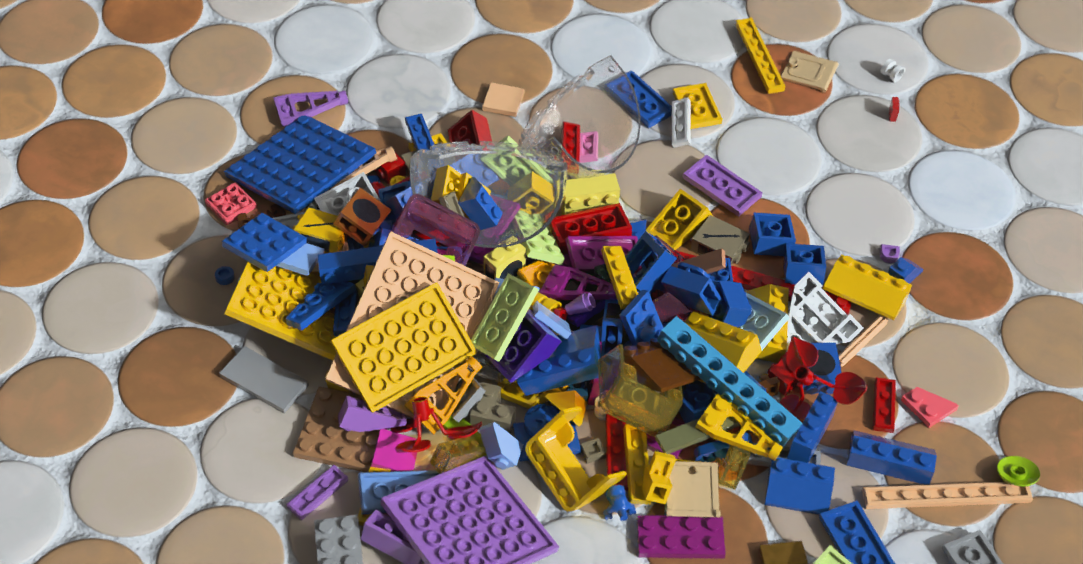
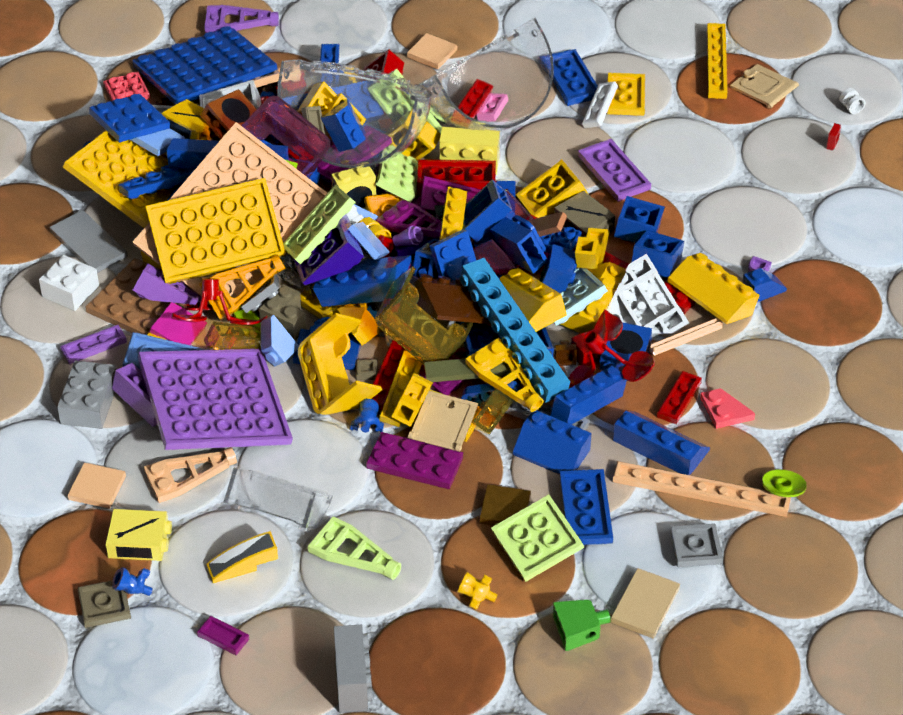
camera: 20 degrees right, 5 degrees down
(266, 431) = (69, 282): none -> white brick
(750, 275) = (592, 248): none -> yellow arch

